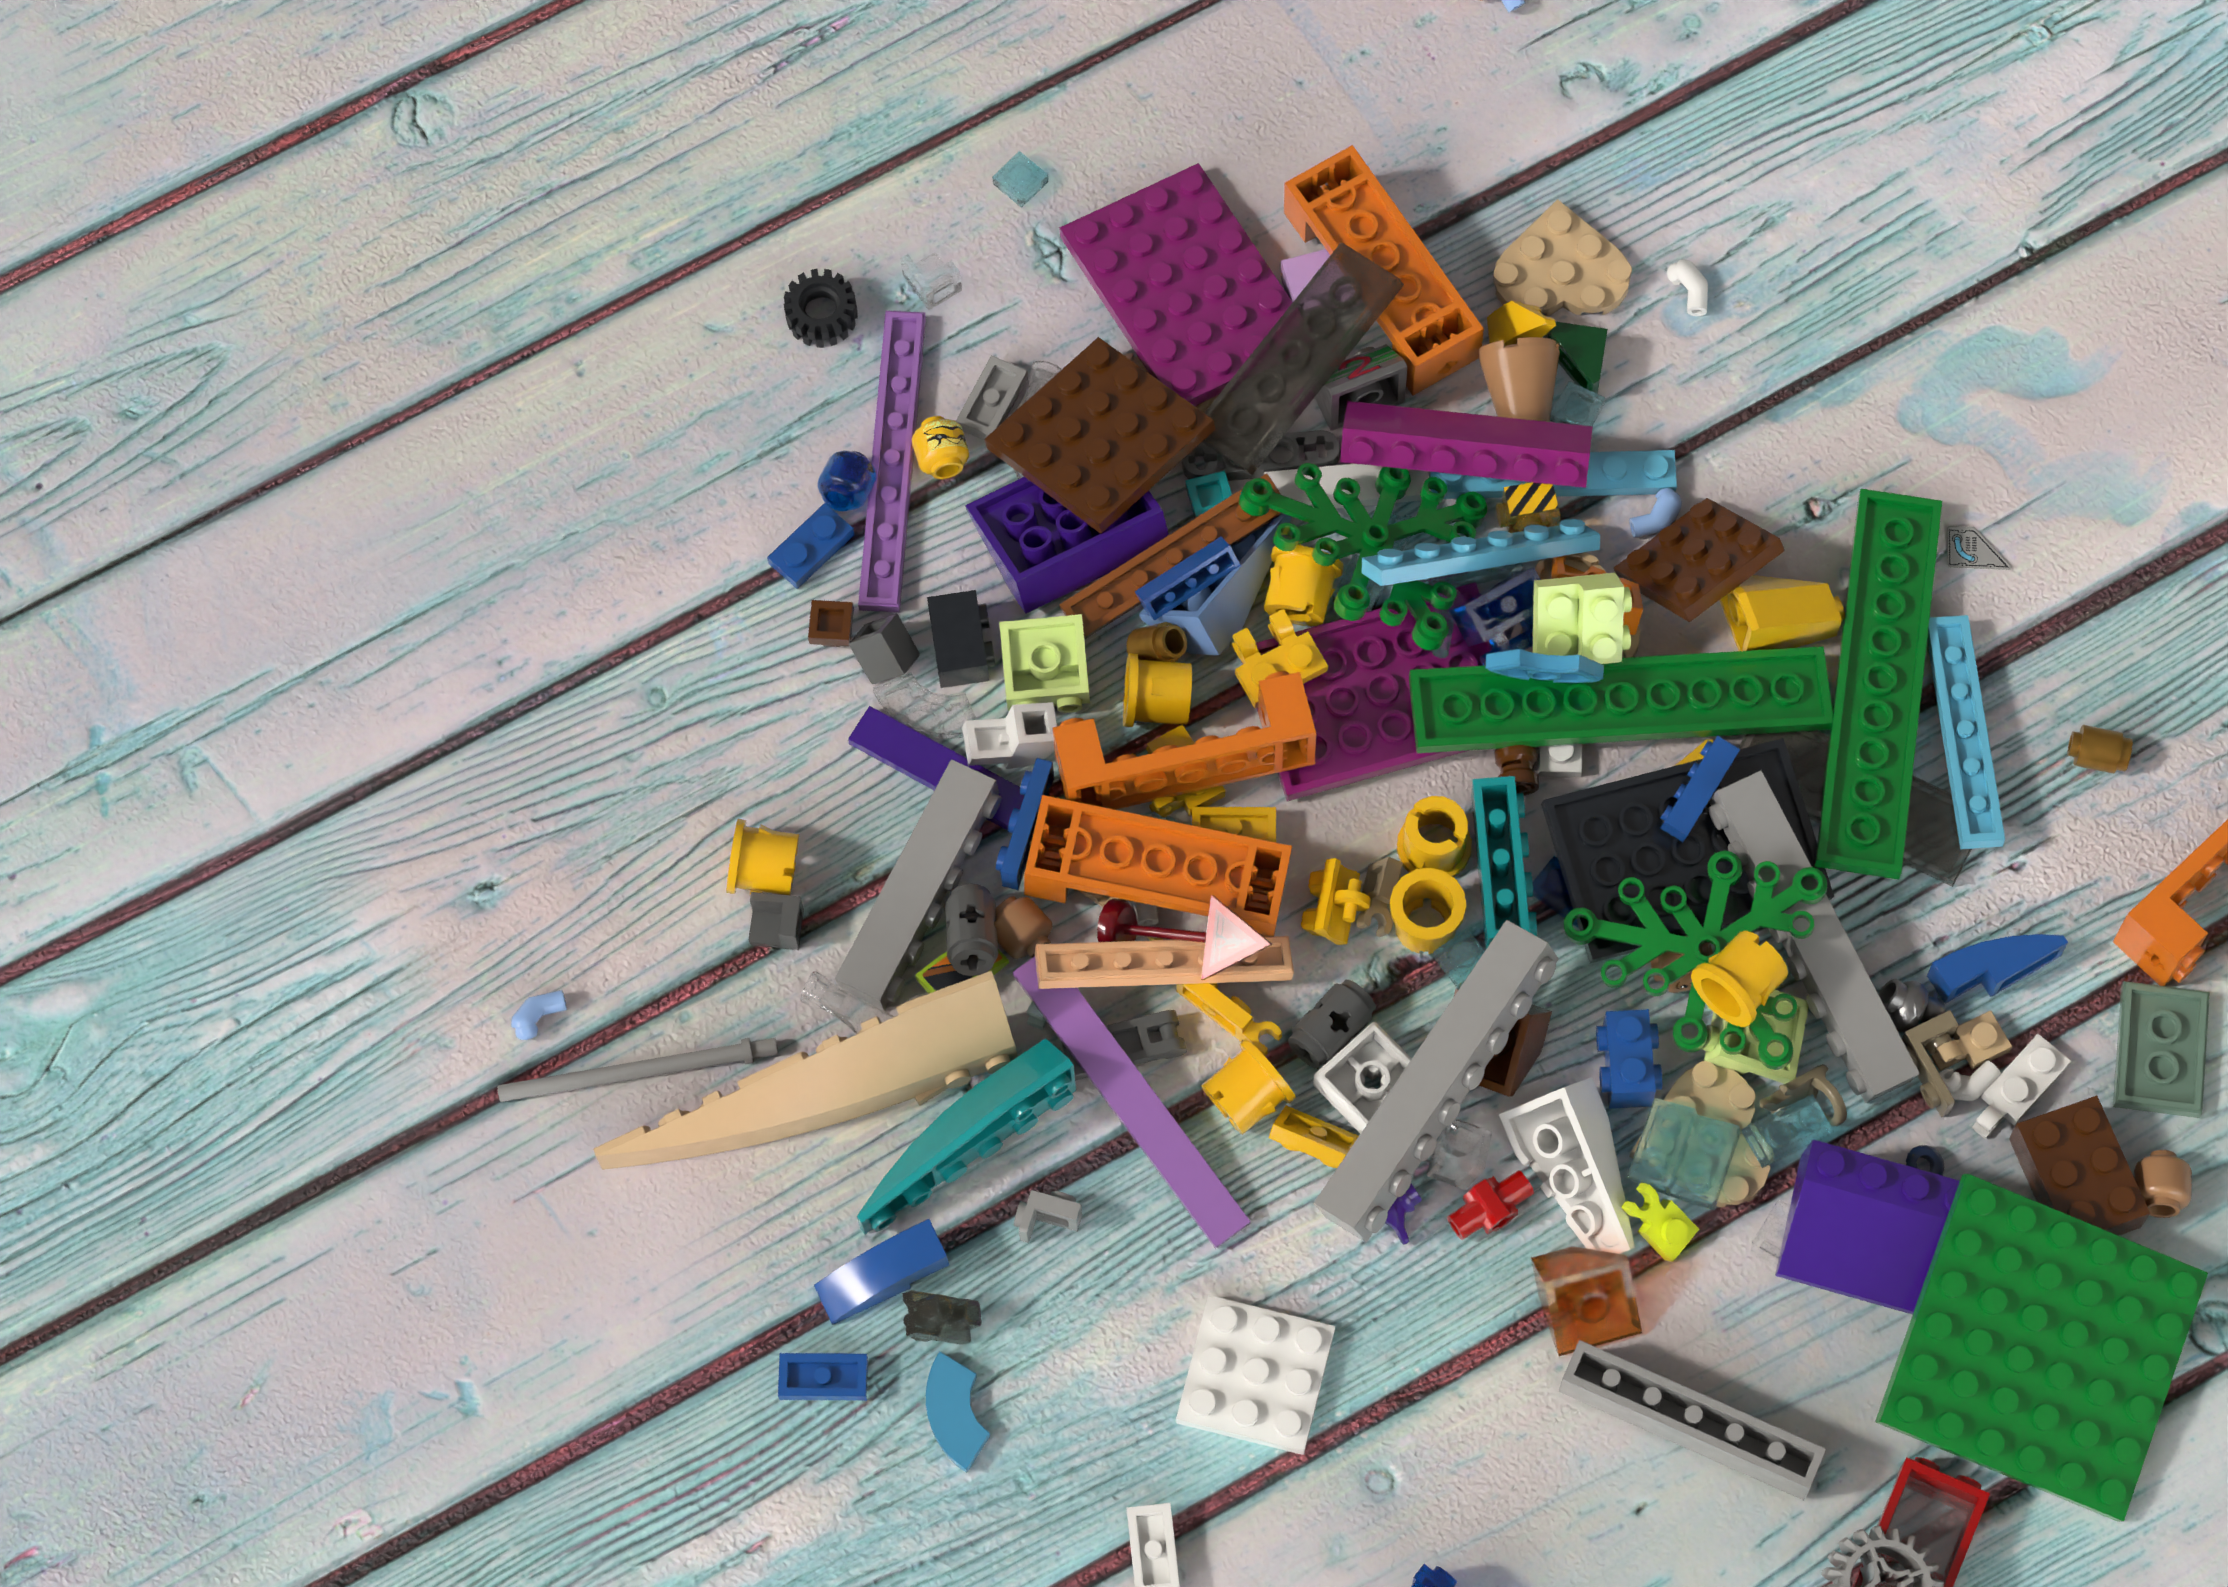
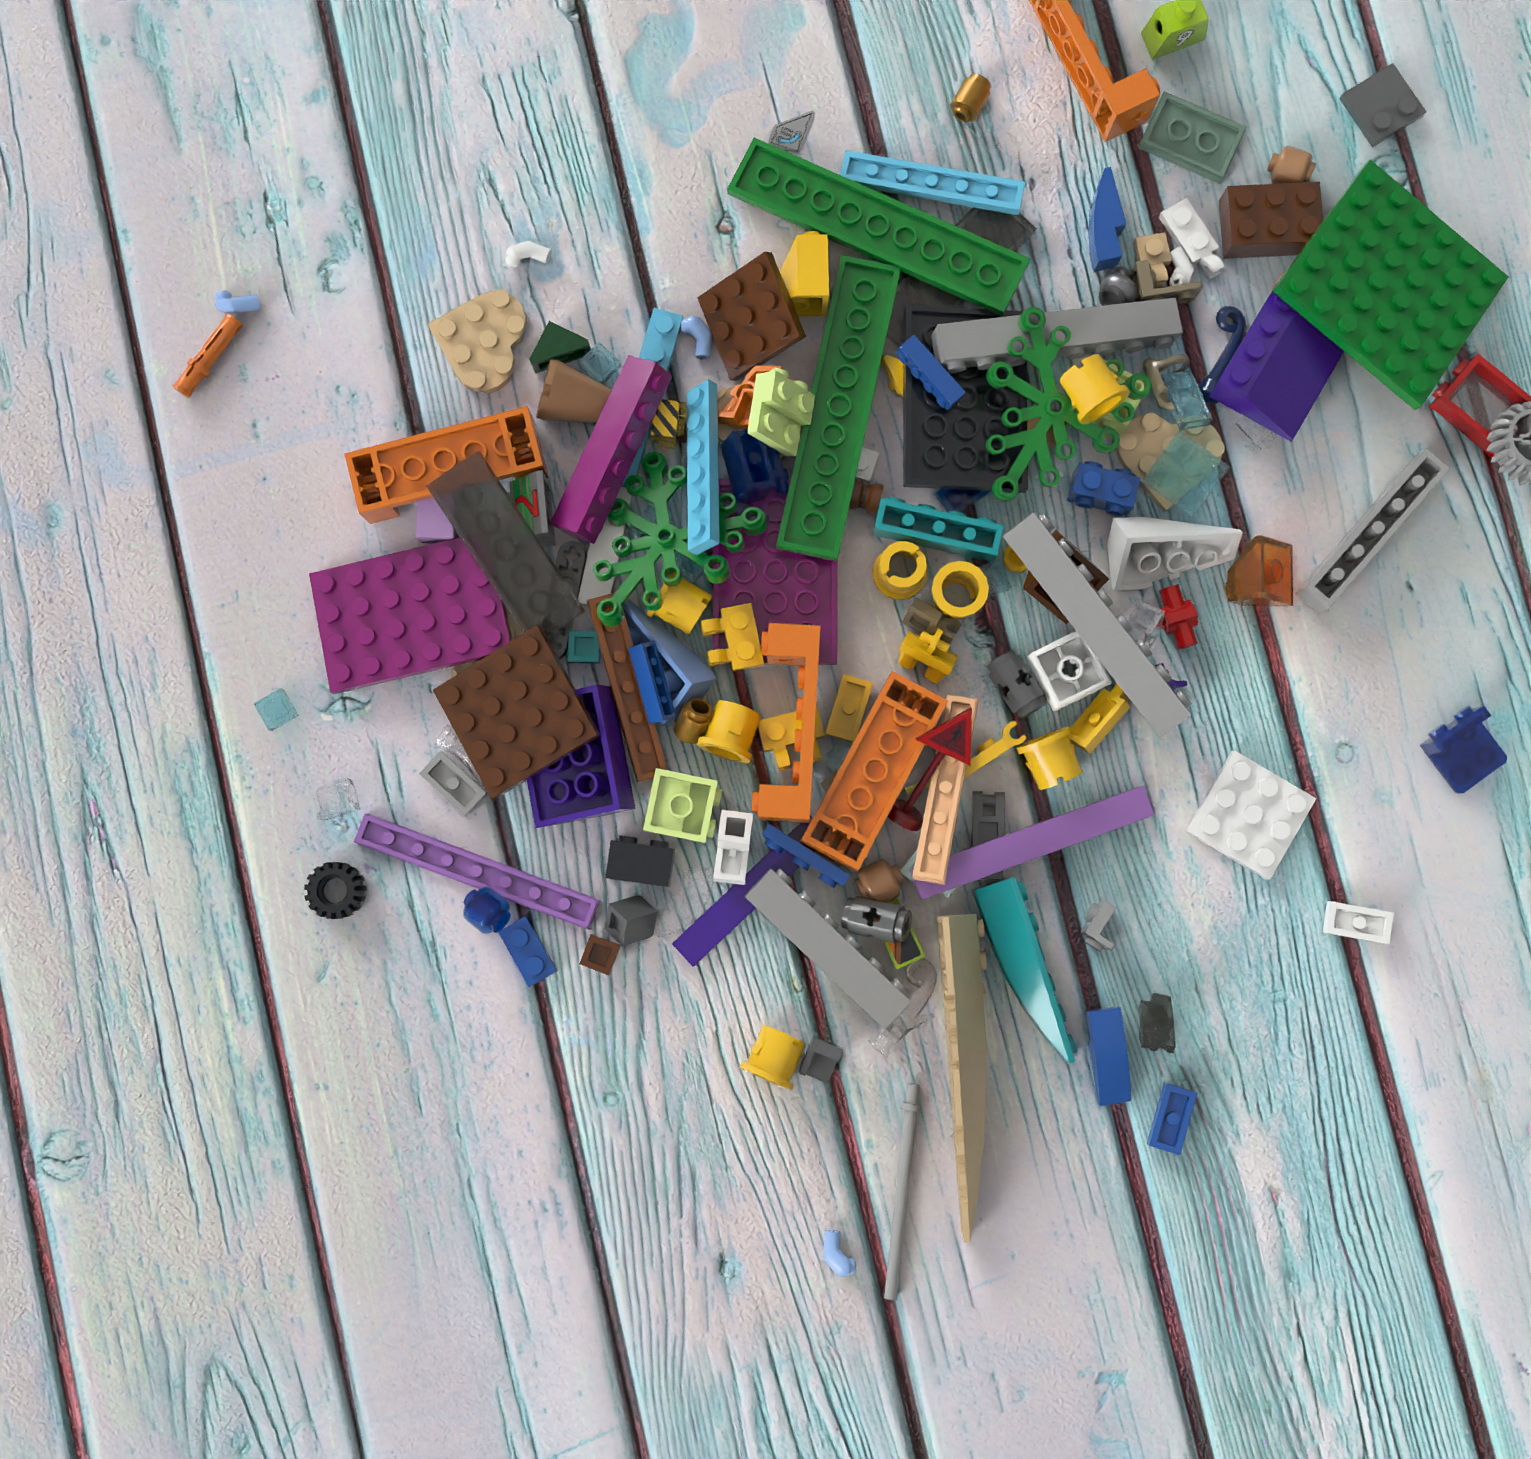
camera: 75 degrees left, 15 degrees up
(940, 447) = (482, 833): yellow head -> none
(951, 1412) = (1220, 1034): dark azure tile -> none
(1517, 321) = (520, 384): yellow slope -> none
(1528, 665) = (808, 449): dark azure tile -> none
(1664, 1223) = (1226, 505): neon yellow plate -> none

